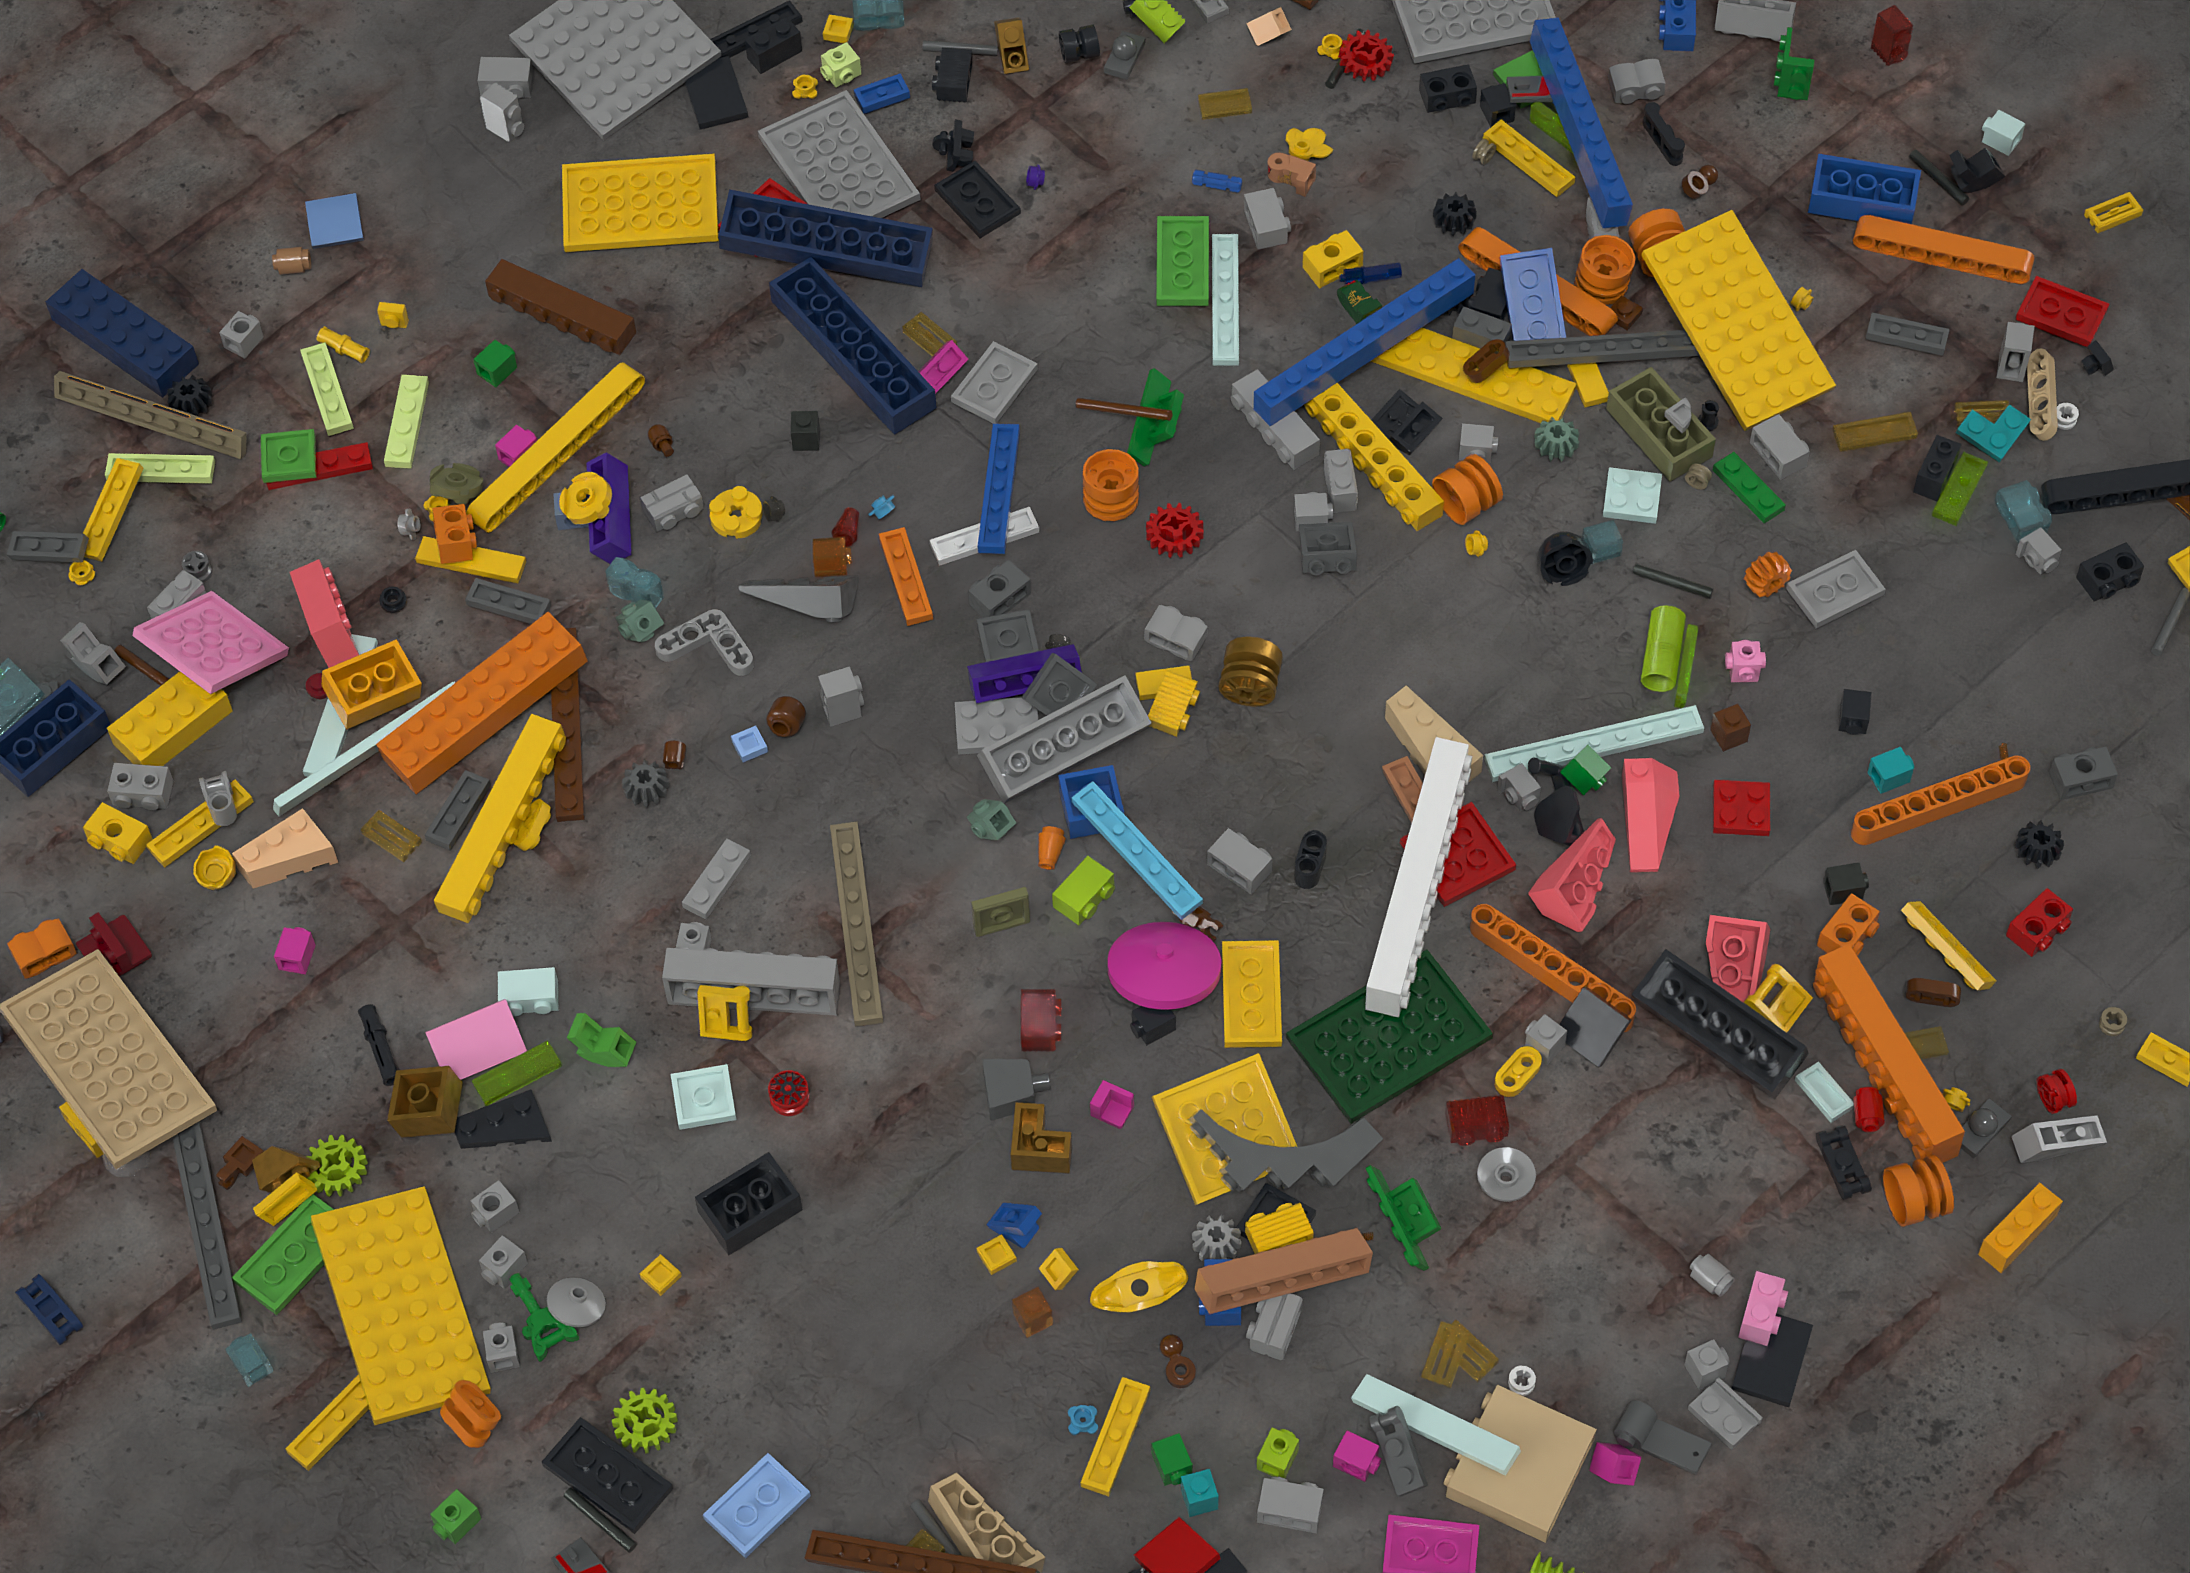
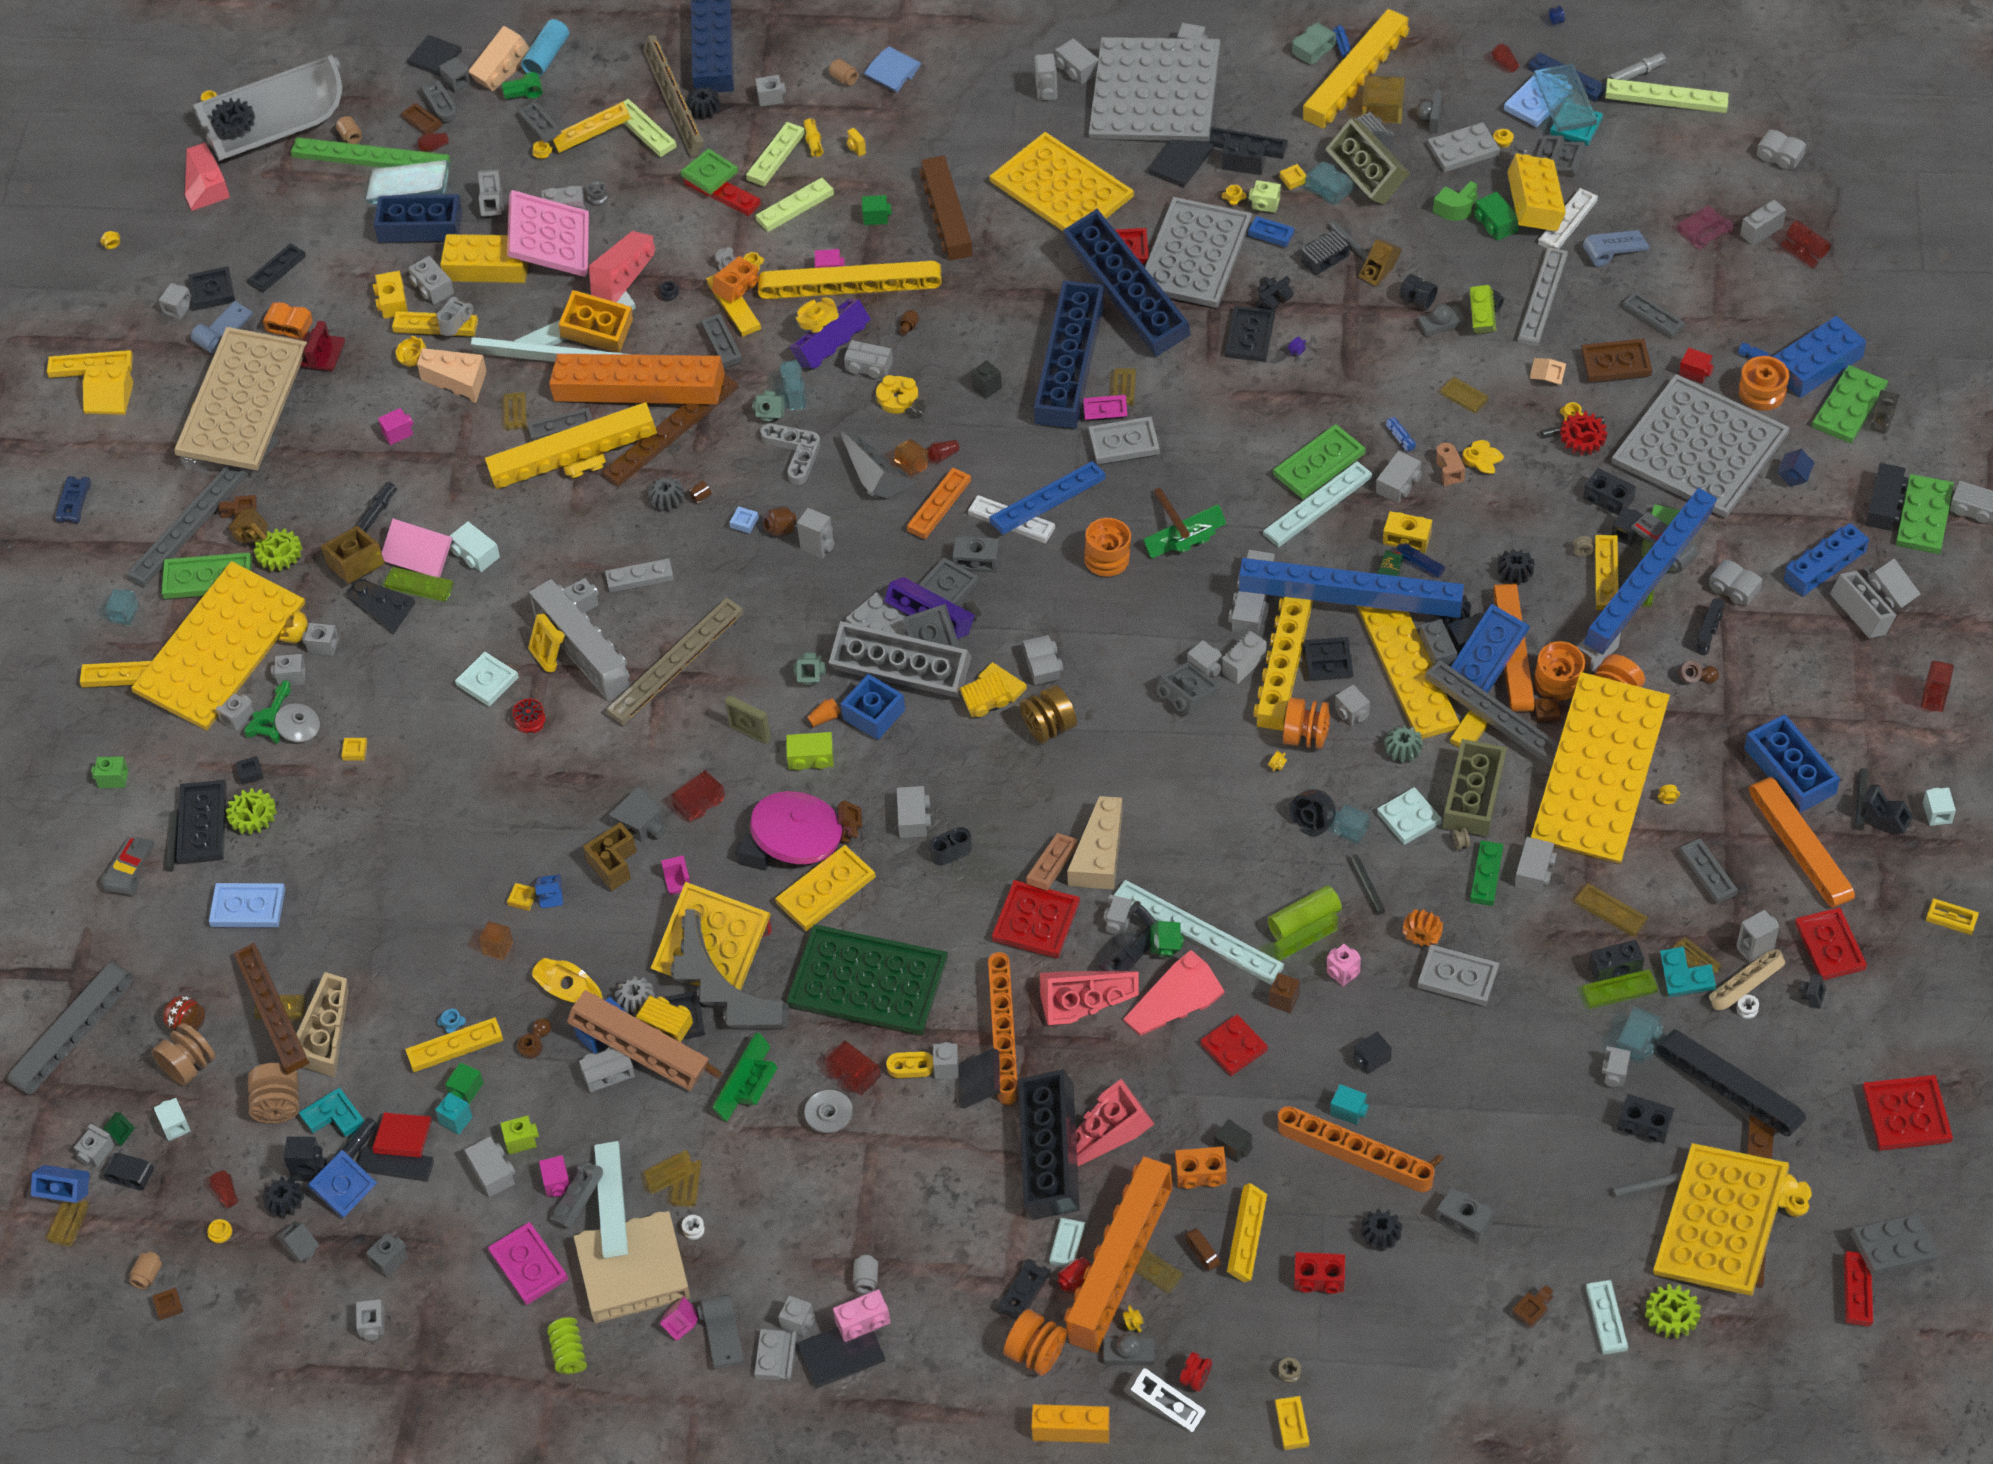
camera: 50 degrees right, 5 degrees down
(285, 1199) = (232, 542): yellow tile -> none
(454, 1221) = (294, 628): none -> yellow hair
(456, 483) = (773, 255): olive plate -> none
(470, 1414) = (178, 727): orange brick -> none
(589, 1386) = (249, 770): none -> black plate
(601, 1045) = (471, 602): bright green brick -> none
(748, 1203) = (433, 750): black brick -> none
(882, 506) = (974, 455): dark azure plate -> none
(1058, 1268) = (539, 932): yellow plate -> none
(1137, 850) = (853, 750): medium azure plate -> none
(1174, 530) = (1115, 604): red gear -> none
(1418, 878) = (979, 900): white brick -> none
(1486, 361) = (1413, 661): reddish brown beam -> none
(1680, 415) = (1485, 788): light grey tile -> none
(1709, 415) = (1513, 812): black pin -> none
(1788, 1002) = (1103, 1173): yellow plate -> none
(1794, 73) = (1840, 651): green bracket -> none

